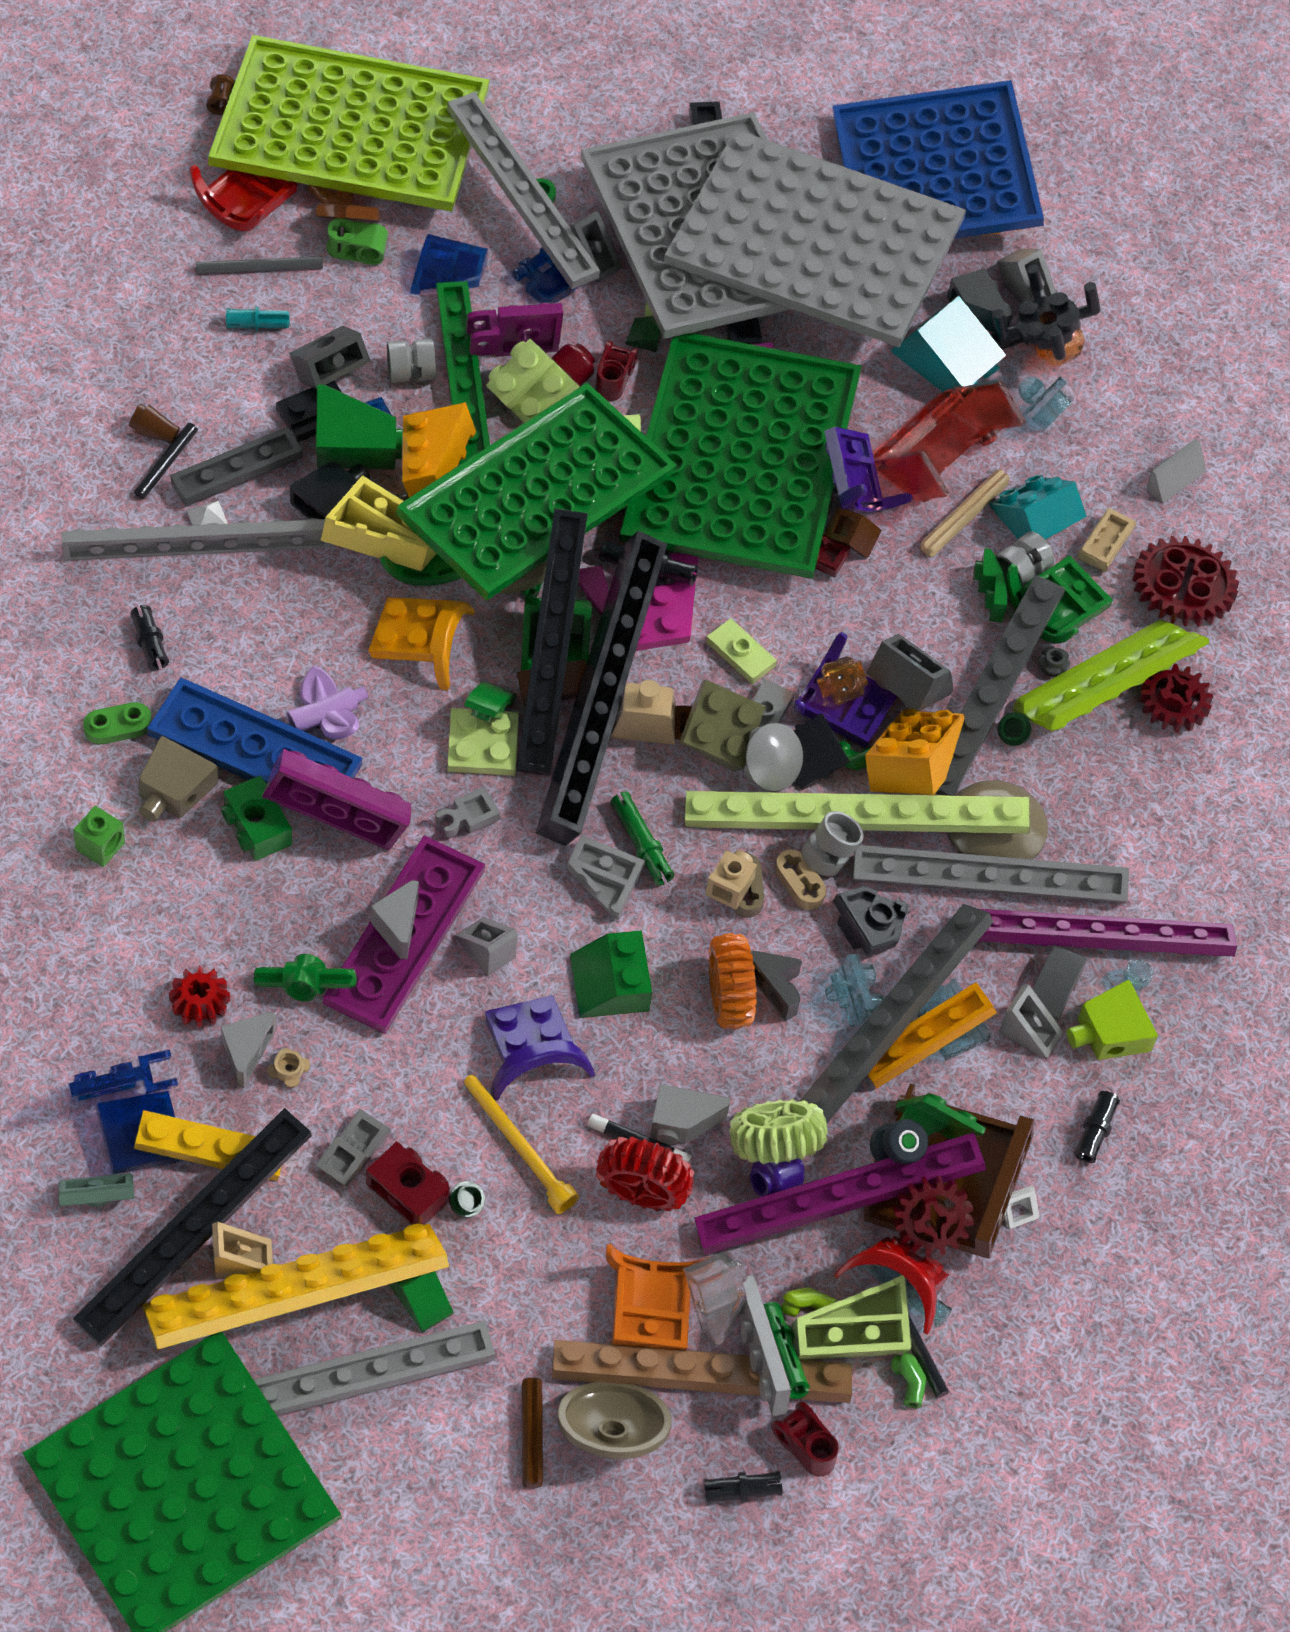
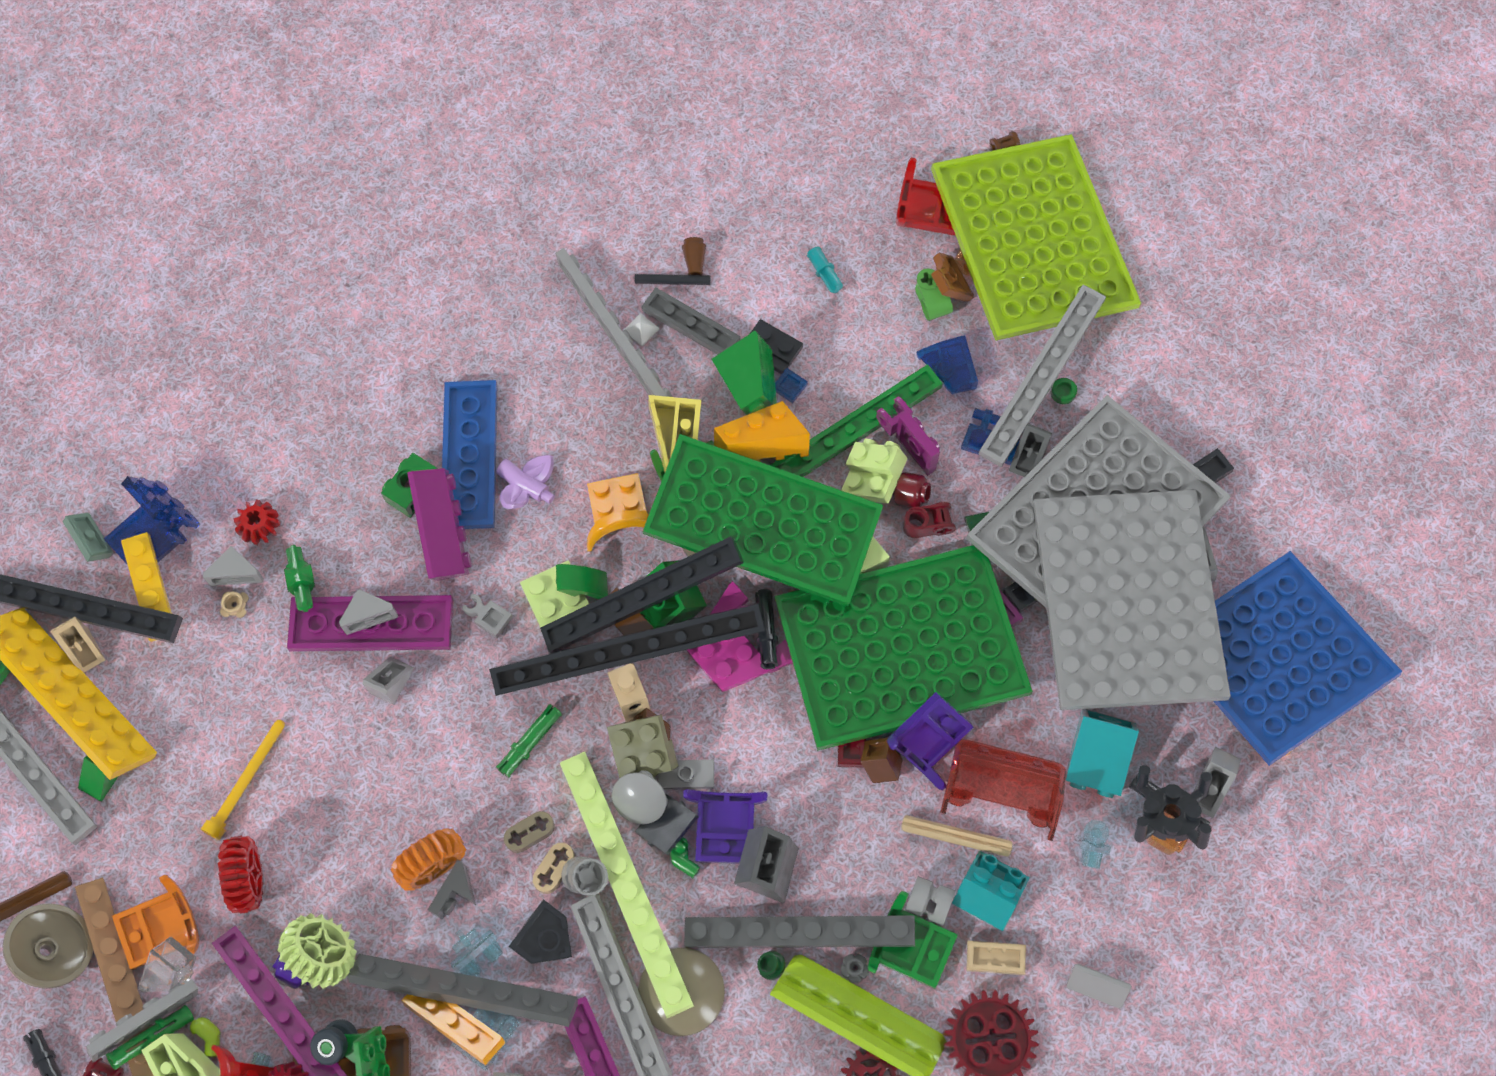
camera: 75 degrees right, 10 degrees up
(99, 836) = (345, 398): bright green brick -> none
(118, 724) = (444, 362): bright green plate -> none
(149, 637) = (520, 345): black pin -> none
(174, 780) = (413, 419): dark tan torso -> none
(259, 265) = (875, 247): dark grey bar -> none
(324, 488) = (703, 386): black torso -> none
(330, 357) = (814, 330): dark grey brick -> none
(353, 1148) = (193, 676): light grey slope -> none
(411, 360) = (844, 380): light grey wheel -> none
(415, 1203) = (171, 709): dark red brick -> none
(466, 1199) = (184, 767): plate -> none
(530, 1037) = (324, 748): dark purple piece -> none
(605, 873) = (486, 731): light grey wing -> none
(612, 975) = (403, 777): green slope -> none
(616, 1130) = (285, 859): bar -> none
(686, 1114) = (313, 878): light grey slope -> none
(731, 878) = (524, 826): tan brick -> none
(741, 651) = (731, 731): yellowish green plate -> none
(842, 680) = (730, 815): clear orange head -> none
(914, 752) = (700, 899): light orange slope -> none
(980, 296) = (1167, 750): dark grey slope -> none
(992, 583) = (901, 881): green slope -> none

